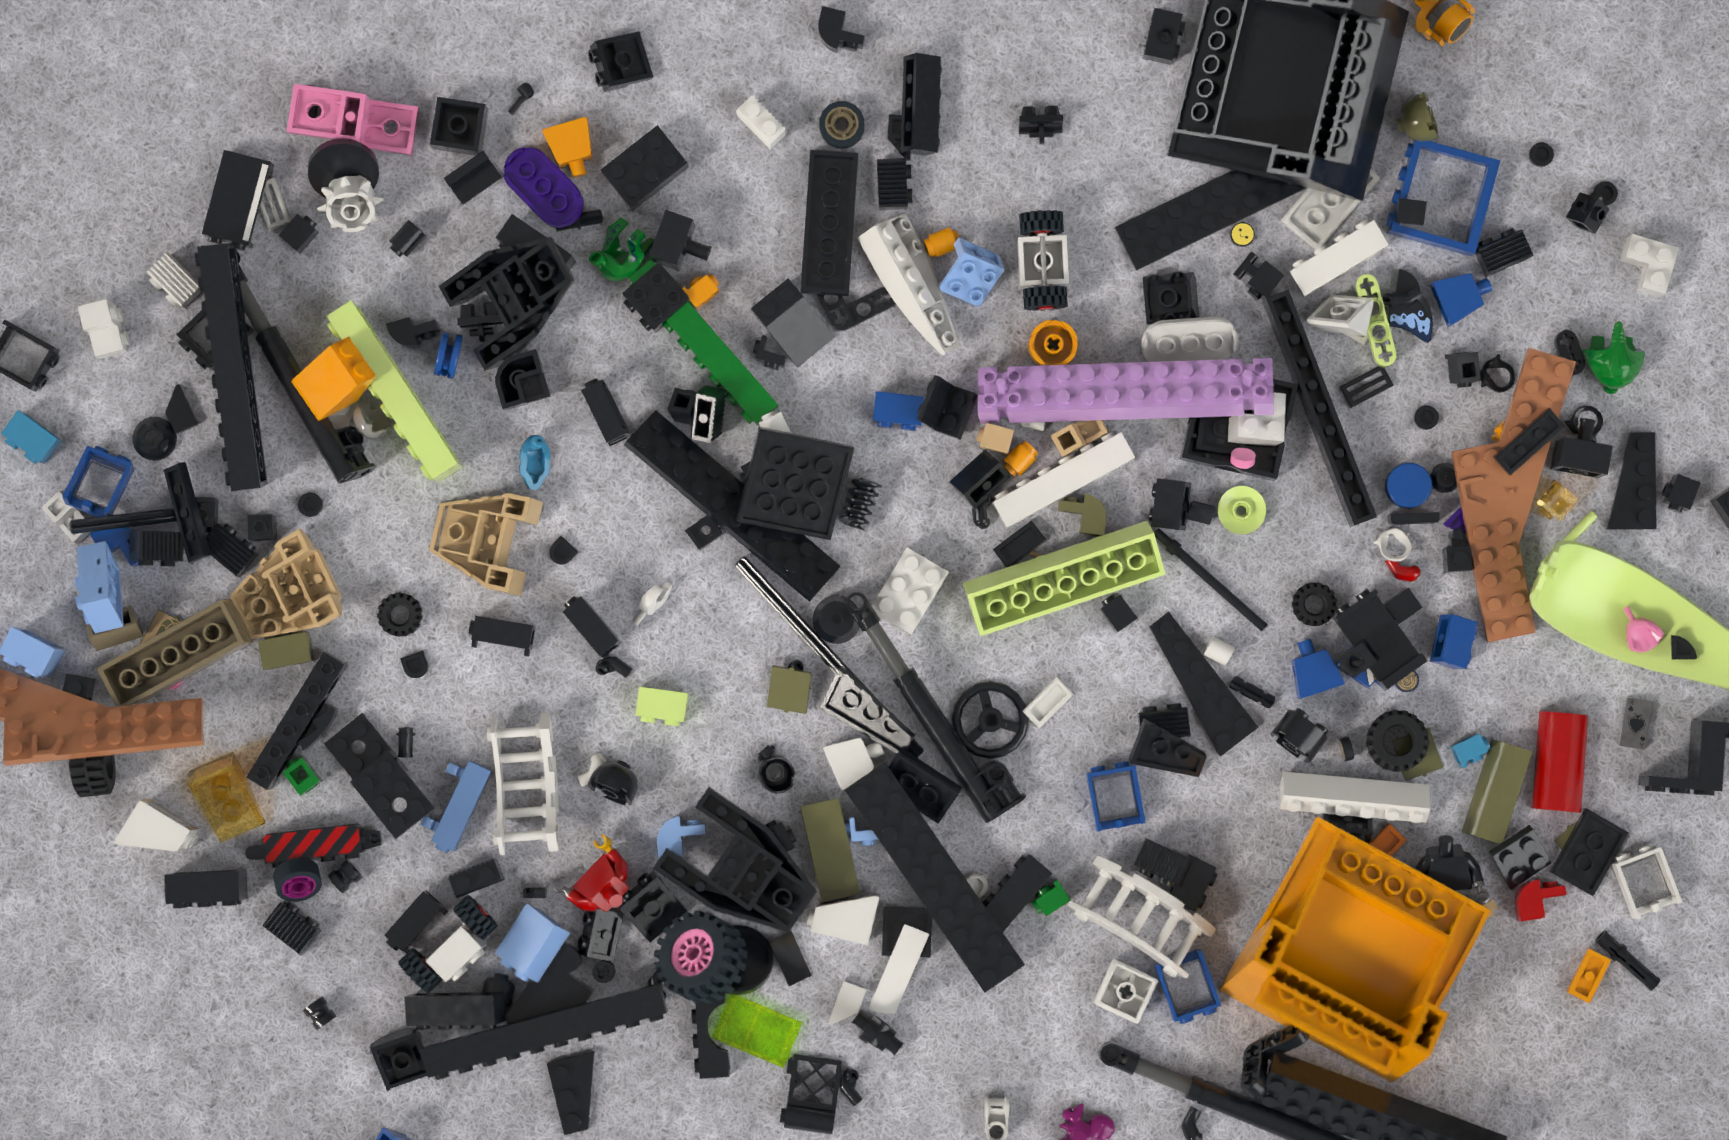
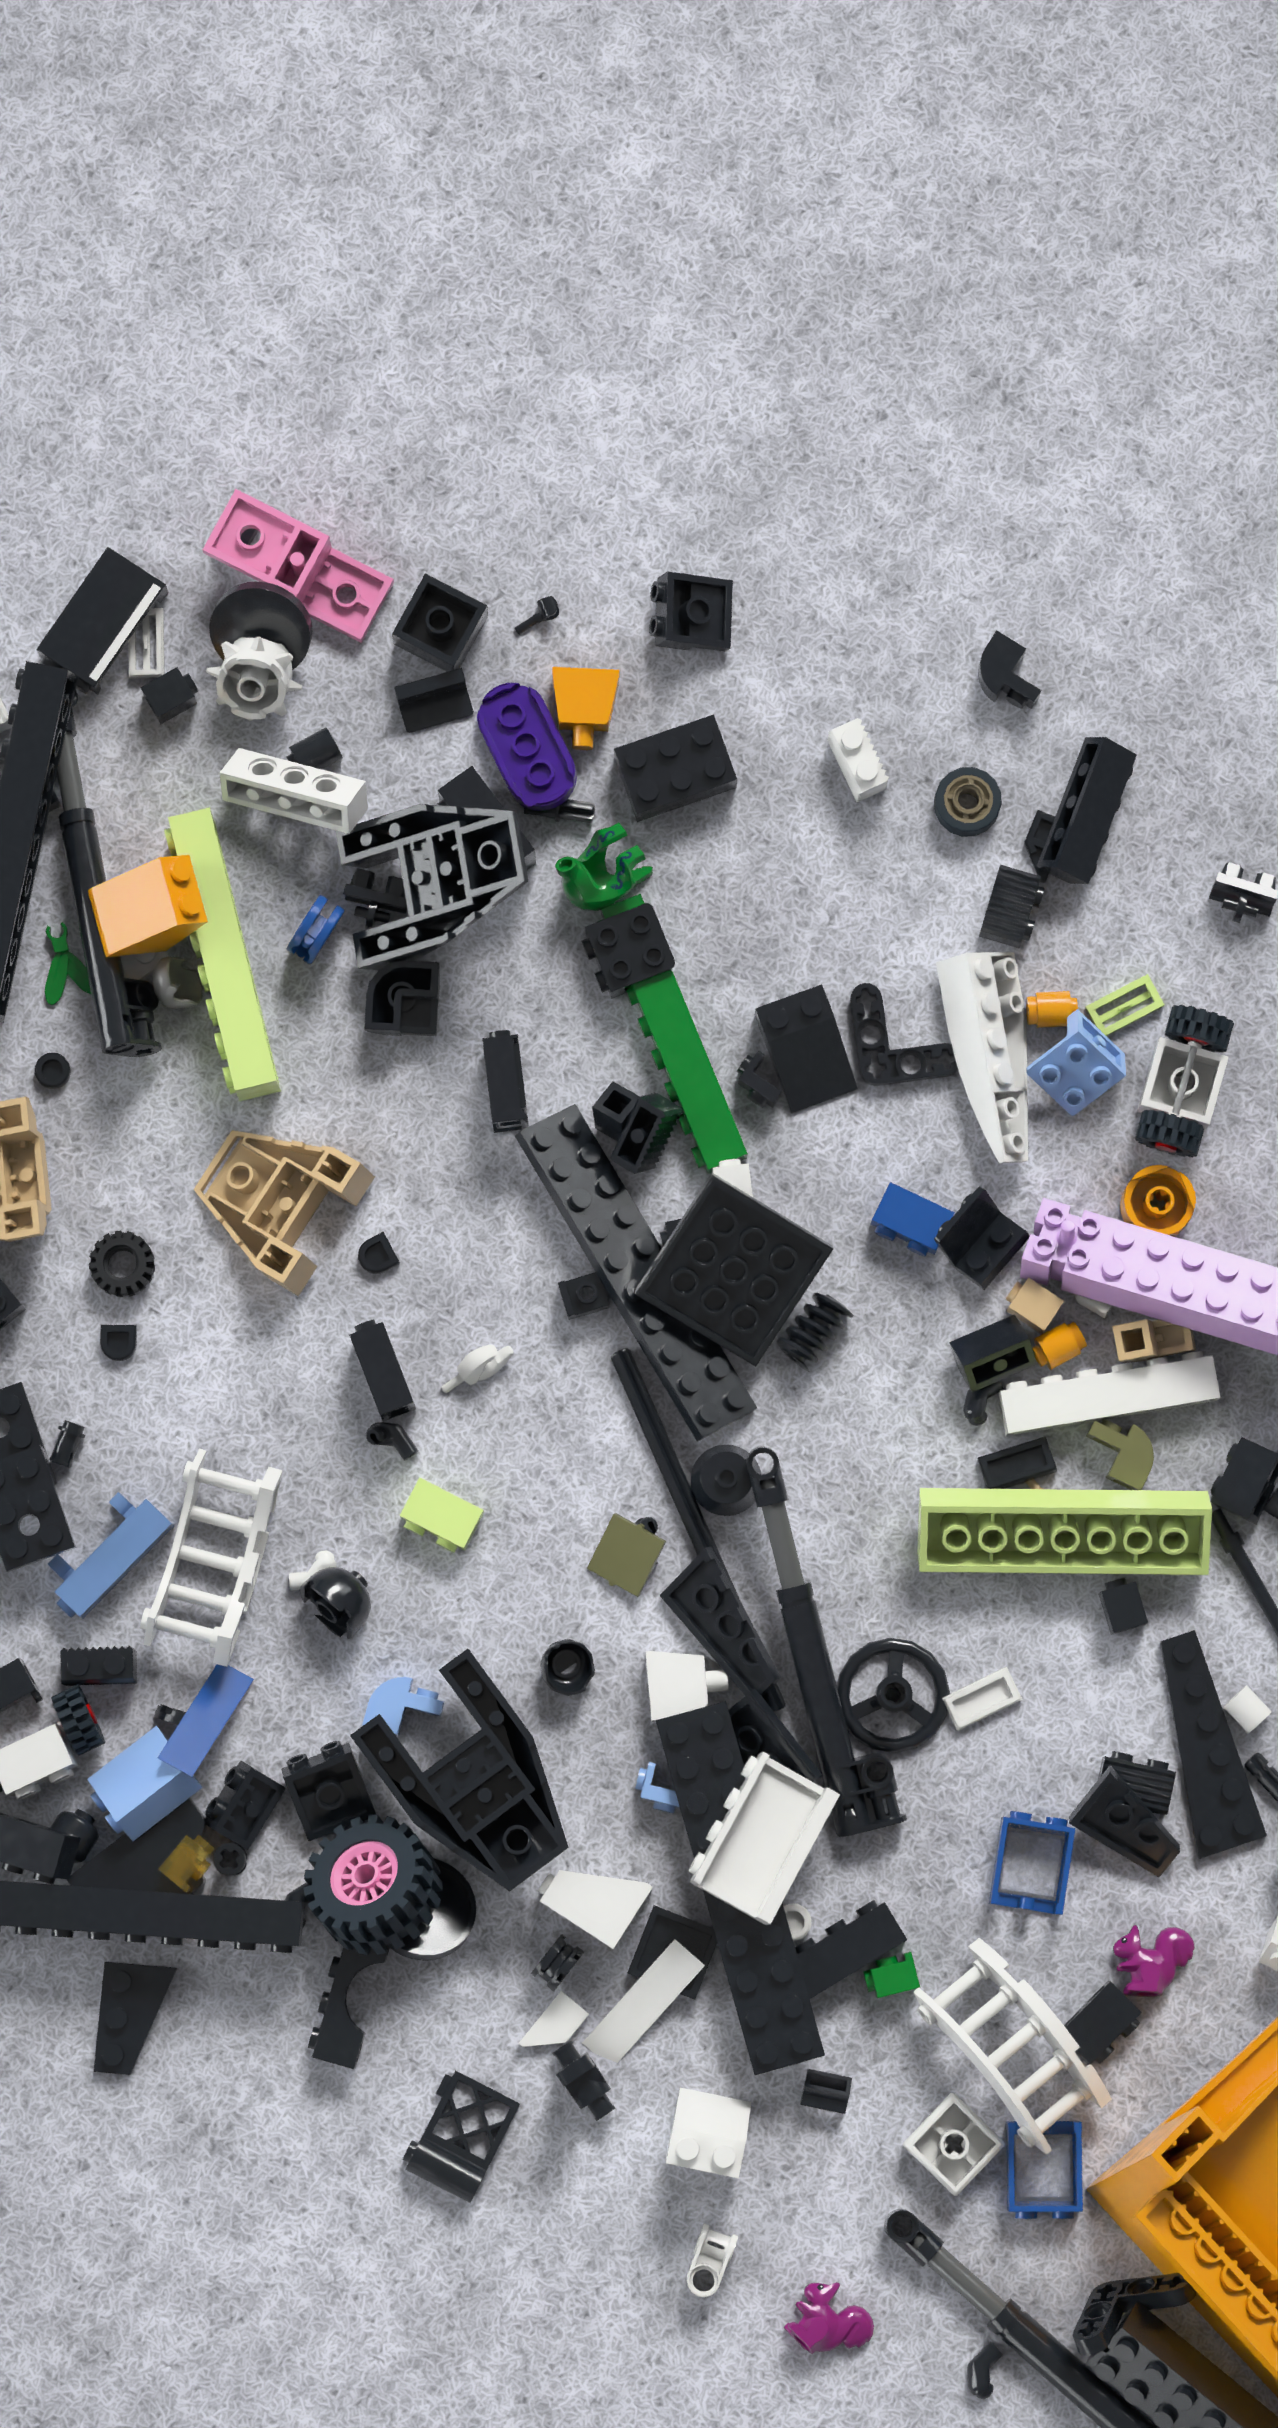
camera: 15 degrees right, 5 degrees down
(292, 434) = (62, 965): none -> green piece
(402, 269) = (294, 790): none -> white brick
(407, 334) = (269, 883): black brick -> none
(502, 633) = (254, 1338): black brick -> none
(532, 467) = (375, 1124): dark azure arm -> none
(556, 889) = (205, 1719): none -> sticker
(577, 983) = (188, 1862): none -> clear yellow brick
(602, 883) = (272, 1734): red torso -> none
(676, 241) = (683, 881): black brick -> none
(702, 290) = (696, 962): light orange brick -> none
(756, 1030) = (415, 2017): clear neon green piece -> none
(766, 752) = (563, 1632): black piece -> none
(785, 836) = (550, 1758): black bracket -> none
(790, 958) = (497, 1932): black slope -> none
(829, 223) = (904, 929): black plate -> none
(830, 850) = (605, 1798): olive brick -> none
(835, 964) = (557, 1962): none -> black wheel
(848, 1085) = (517, 2141): black arm -> none
(909, 591) = (841, 1475): white brick -> none
(938, 841) = (762, 1838): none -> white panel
(968, 1039) = (708, 2133): none -> white slope
(974, 239) = (1150, 993): none -> yellowish green tile
(1033, 986) = (826, 2091): none -> black piece
(1163, 862) = (1069, 1979): black brick -> none
(1214, 836) = (1153, 1968): none -> magenta animal

